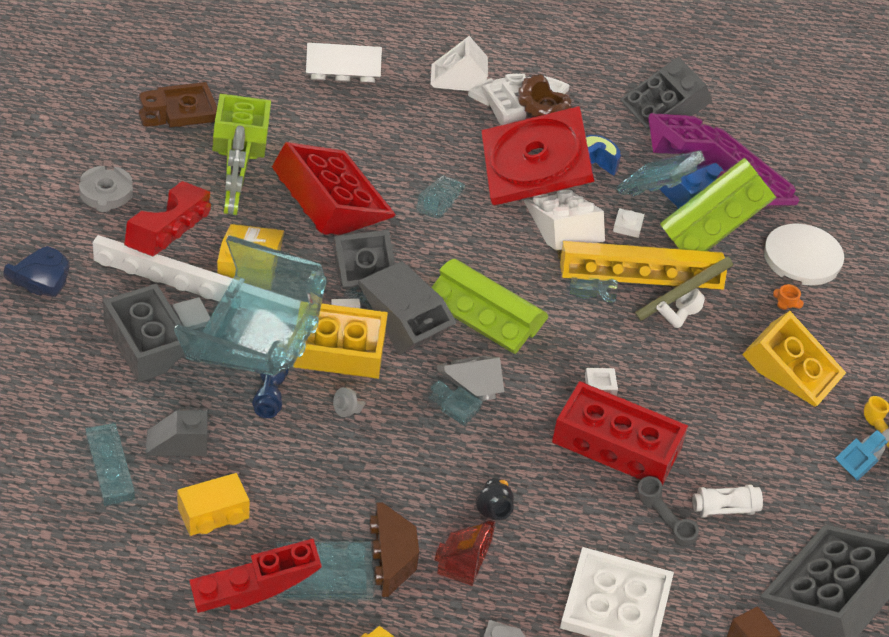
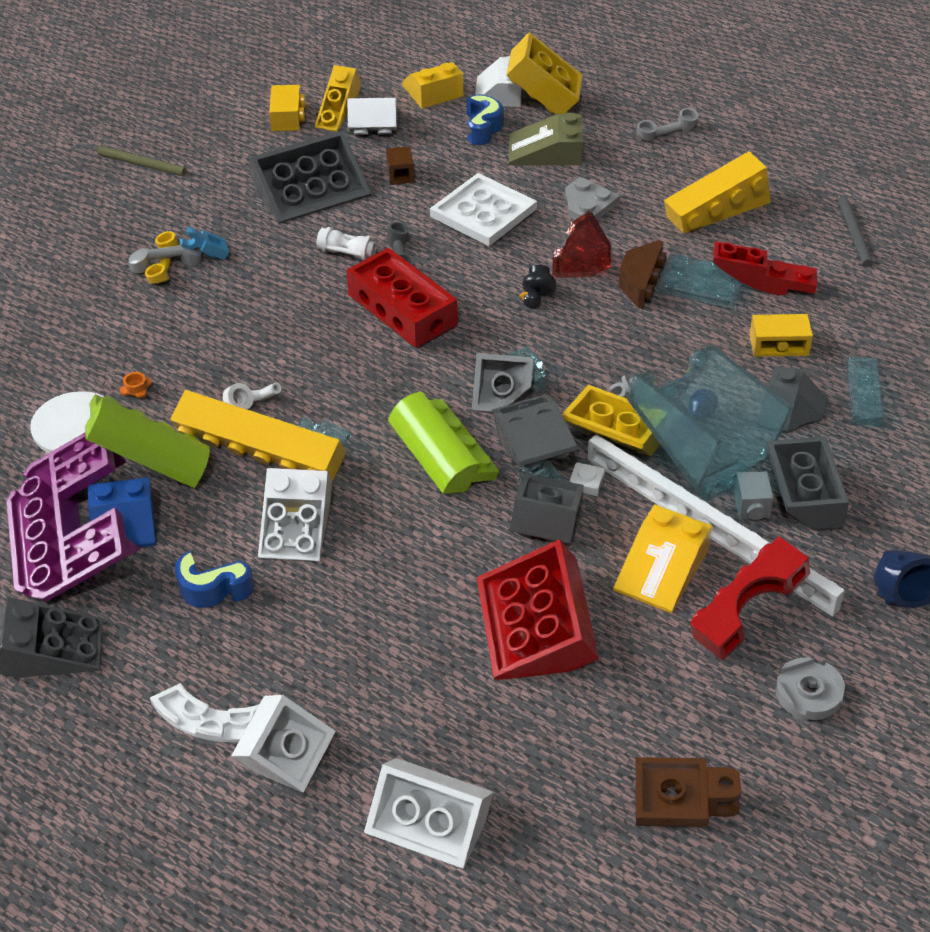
camera: 150 degrees left, 0 degrees up
(240, 136) = (629, 680): lime slope -> none
(436, 199) = (414, 570): clear light blue slope -> none
(500, 108) = (254, 663): white slope -> none
(539, 98) = (211, 651): reddish brown hair -> none
(559, 166) = (283, 615): red piece -> none
(602, 379) = (381, 352): white plate -> none
(628, 223) = (226, 501): white plate -> none
(661, 173) = (161, 510): clear light blue plate -> none
(685, 288) = (240, 395): olive bar -> none
(794, 359) = (192, 328): yellow slope -> none

